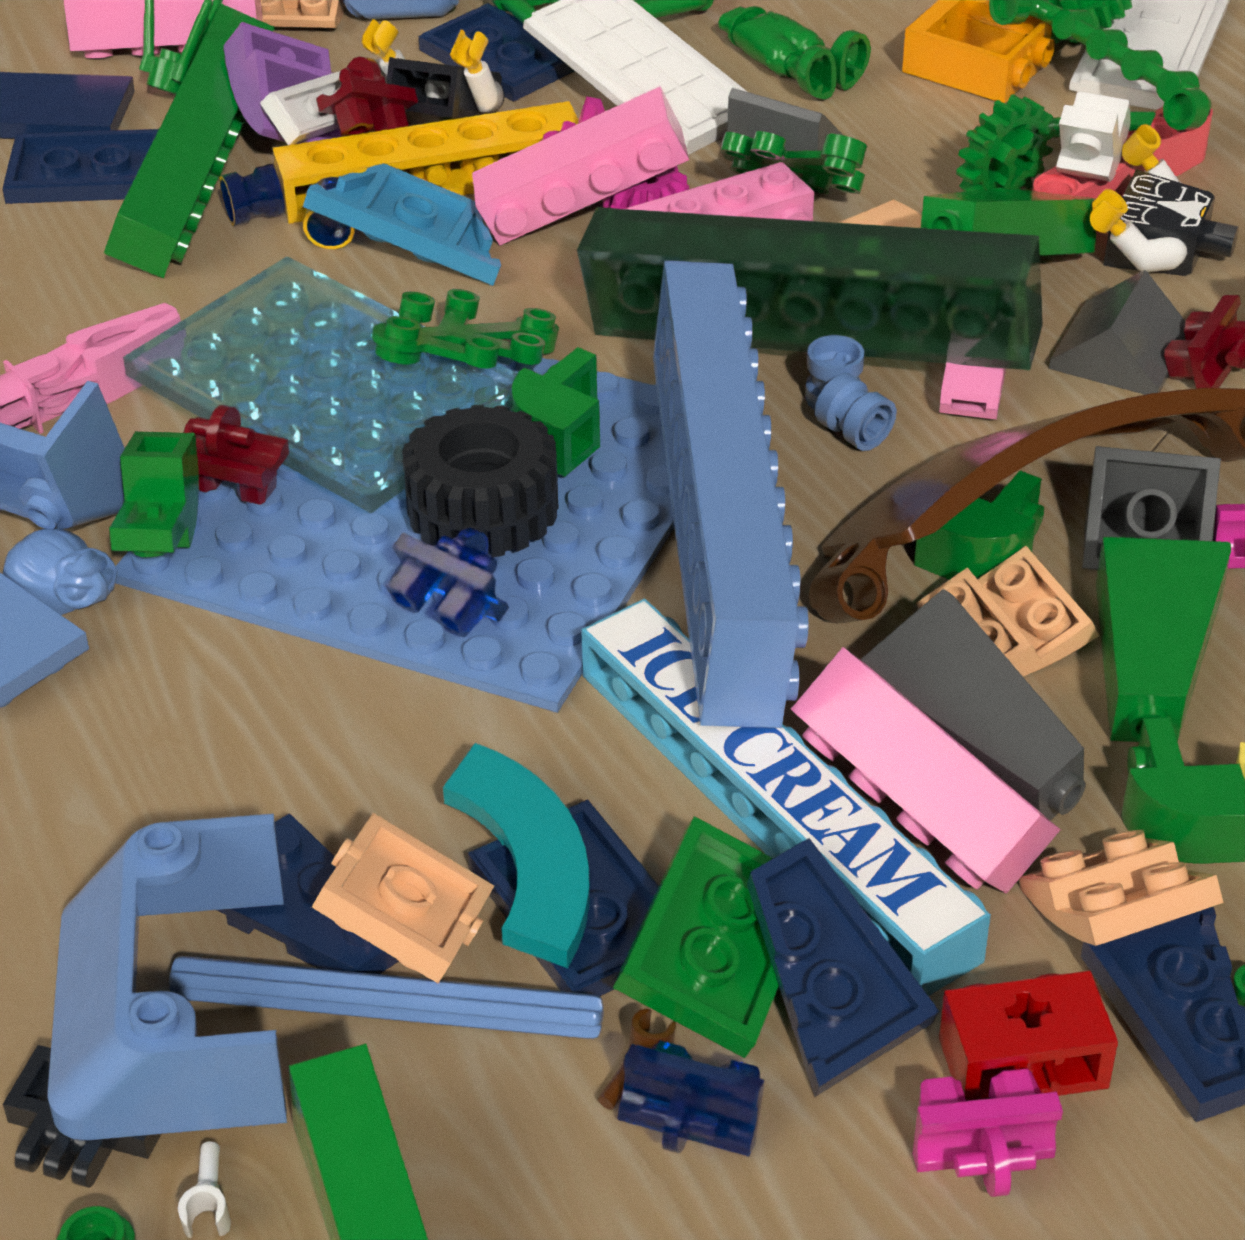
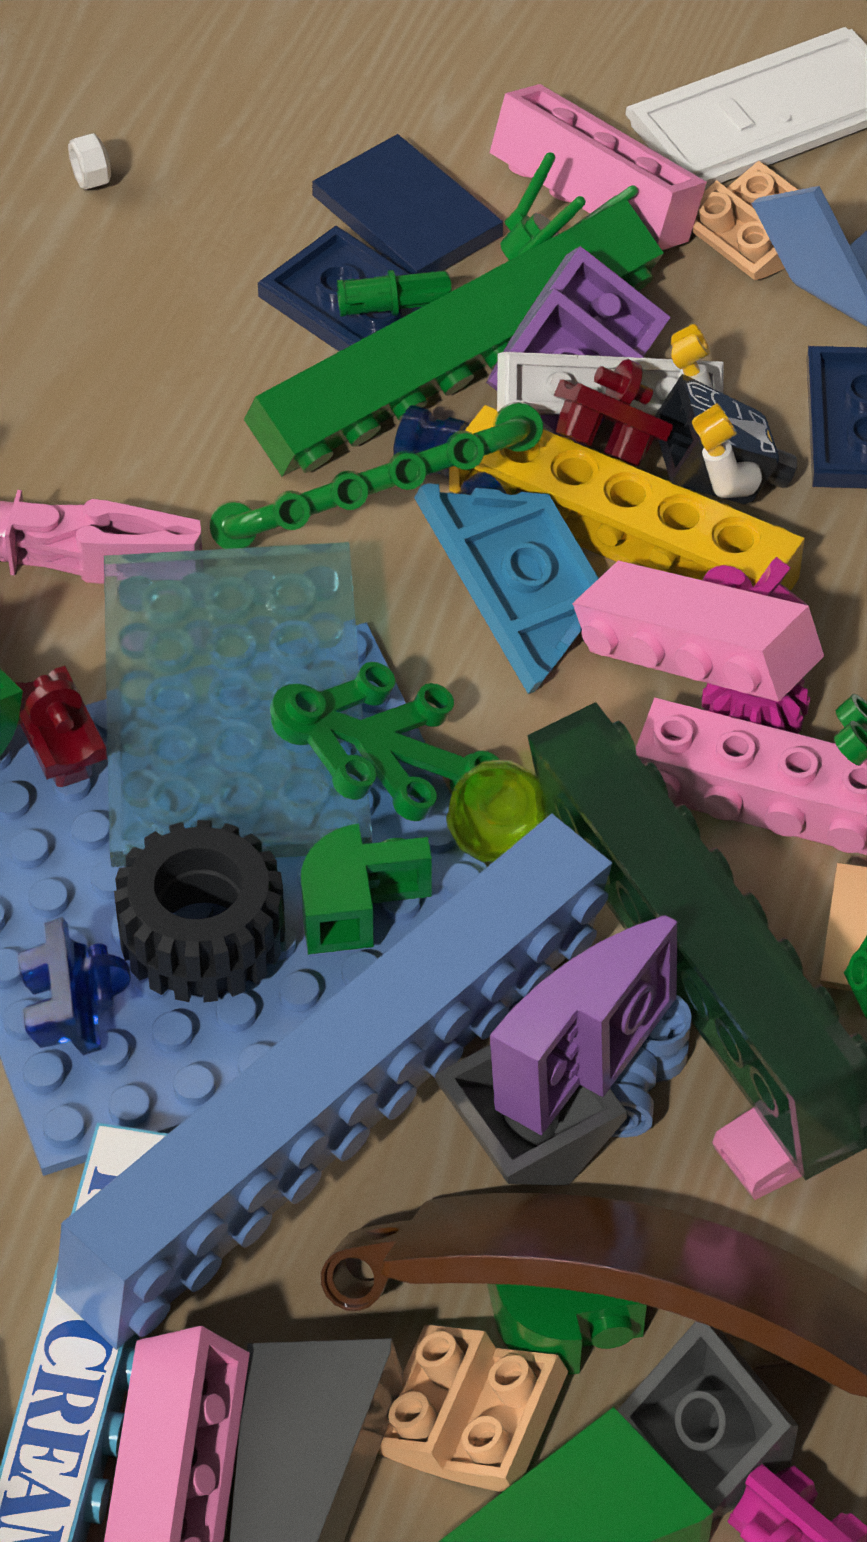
camera: 45 degrees right, 10 degrees up
(116, 136) = (391, 292): none -> green axle
(319, 141) = (514, 427): none -> green bar
(584, 319) = (495, 808): none -> clear neon green hair
(832, 433) = (517, 1151): none -> dark grey slope
(841, 347) = (583, 1023): none -> medium lavender slope

